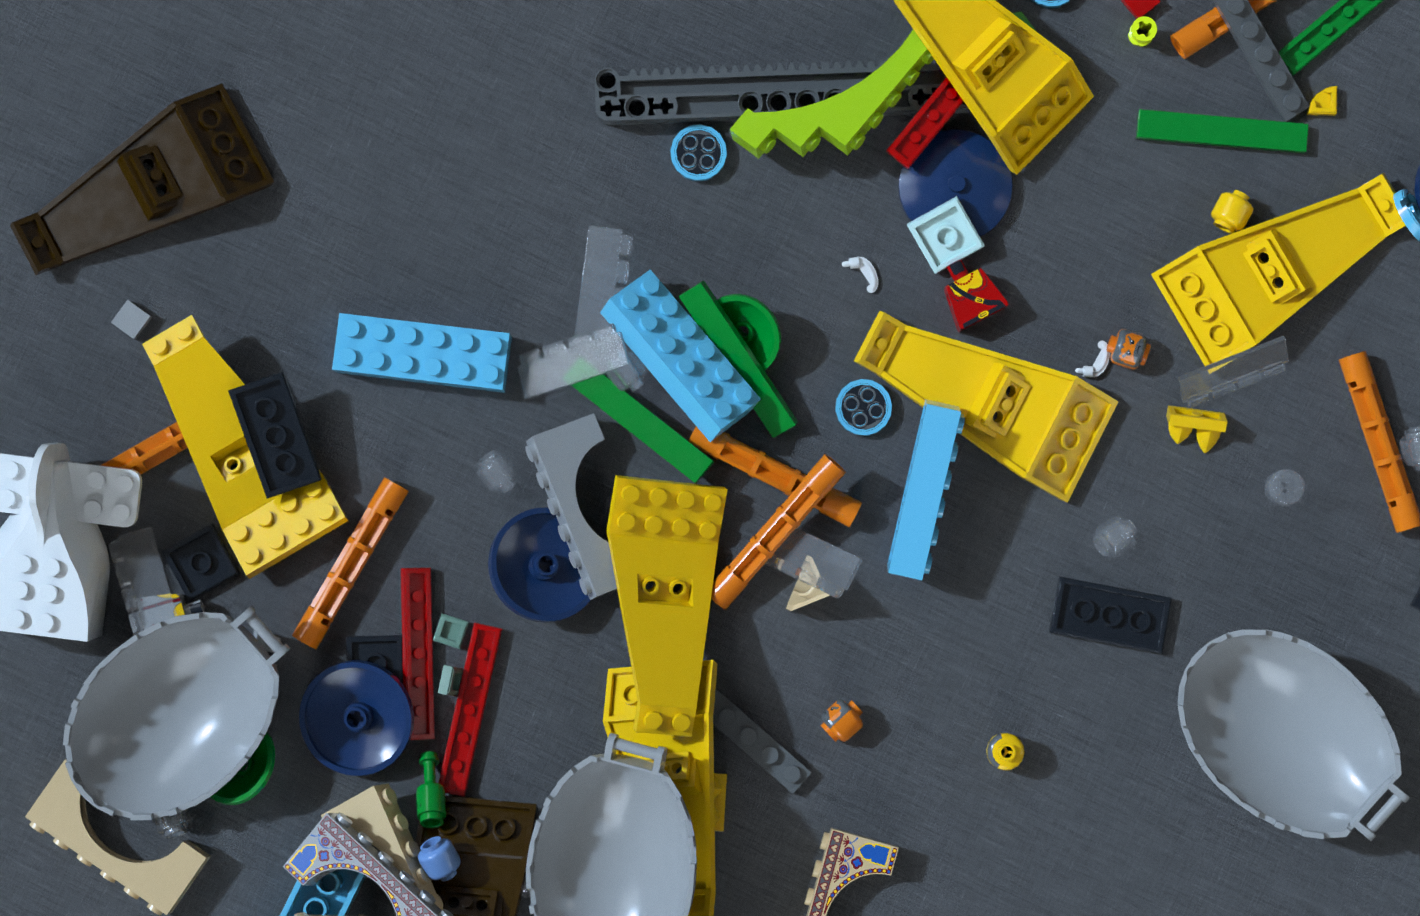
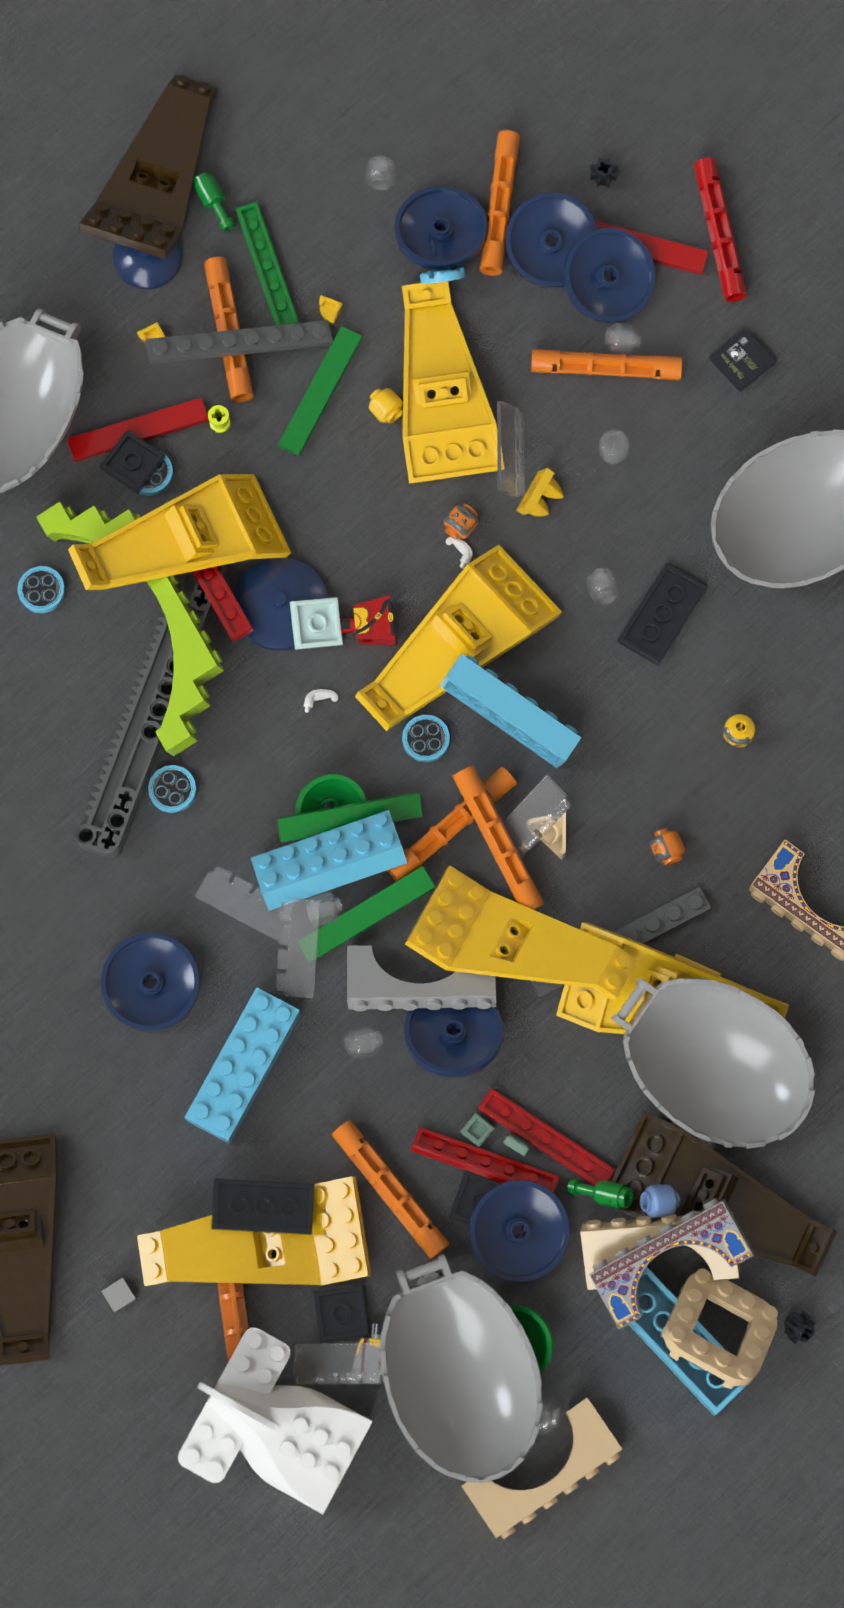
camera: 65 degrees left, 10 degrees down
(473, 216) = (150, 982): none -> dark blue dish

